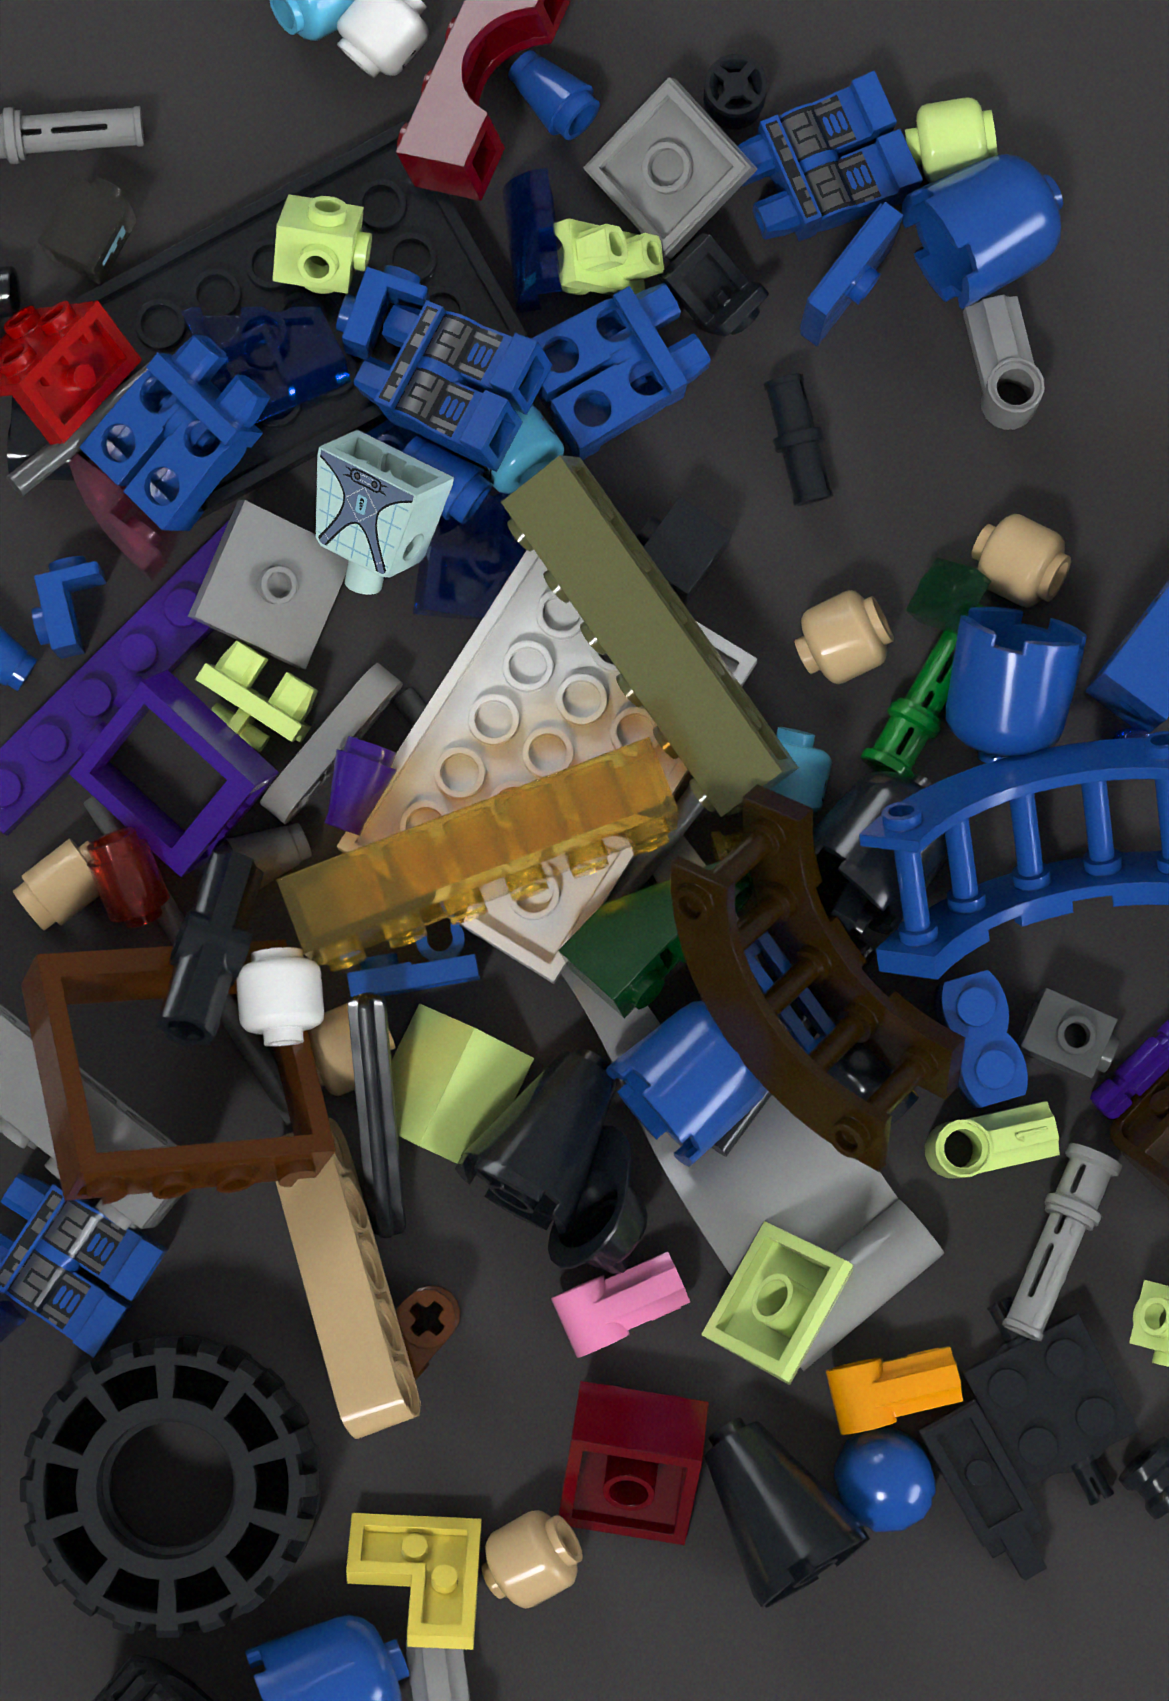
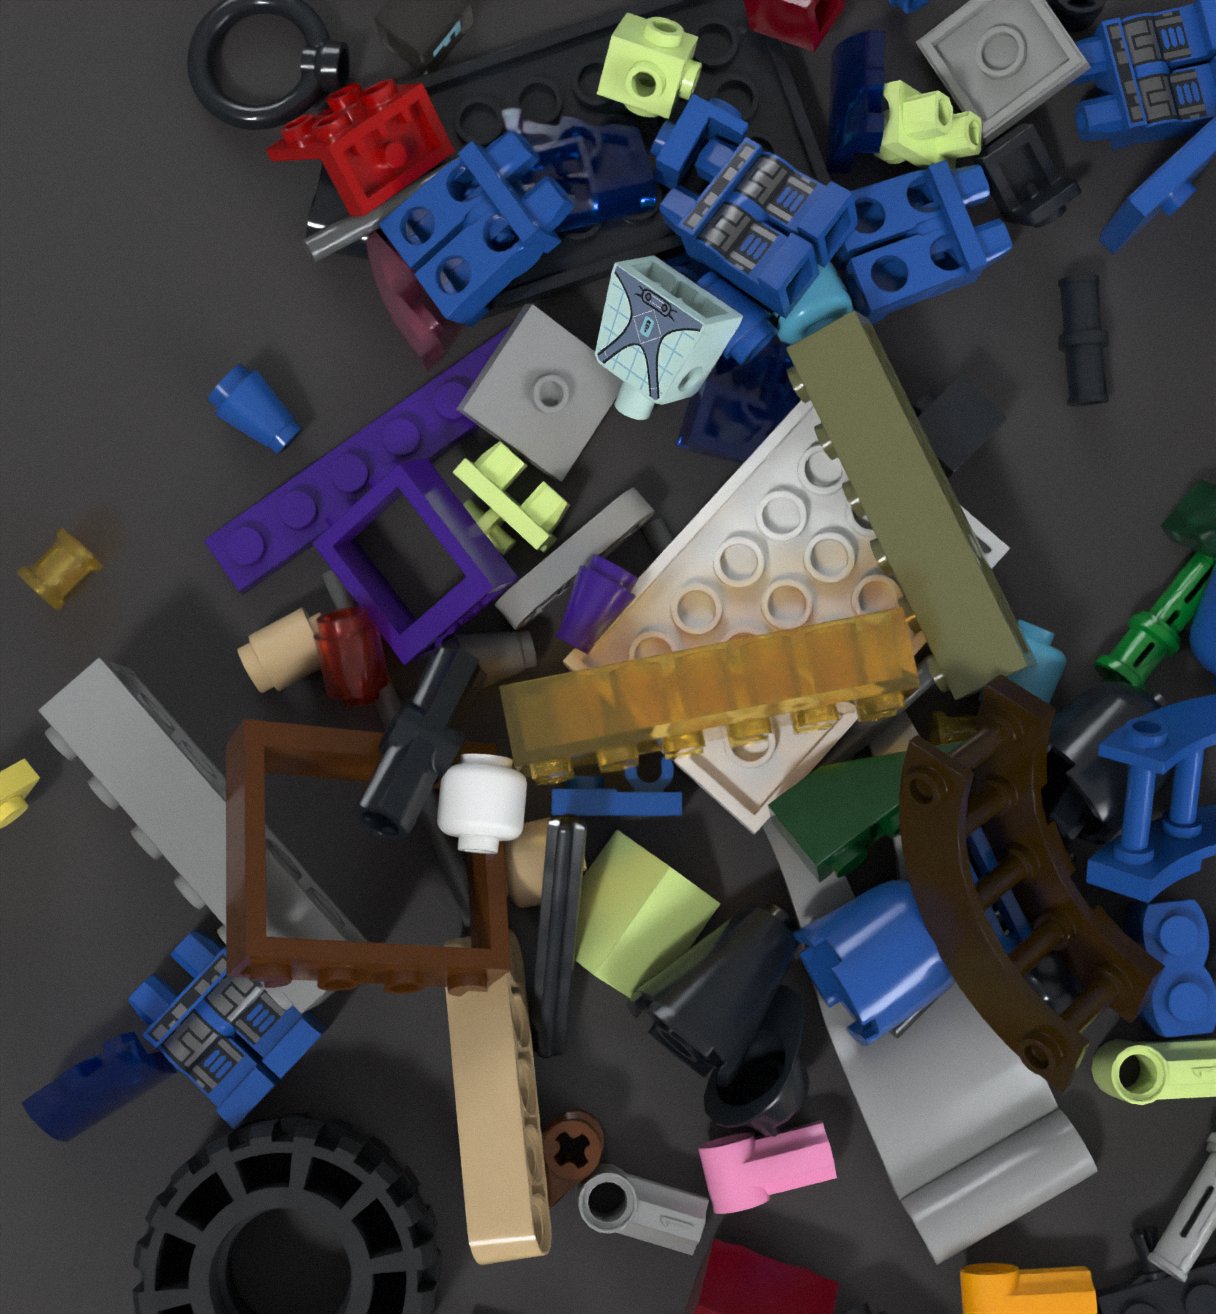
camera: 15 degrees right, 0 degrees up
(56, 617) = (328, 389): blue bracket -> none
(512, 1367) = (647, 1210): none -> light grey piece
(778, 1301) = (930, 1199): yellowish green slope -> none
(844, 637) = (1098, 541): tan head -> none

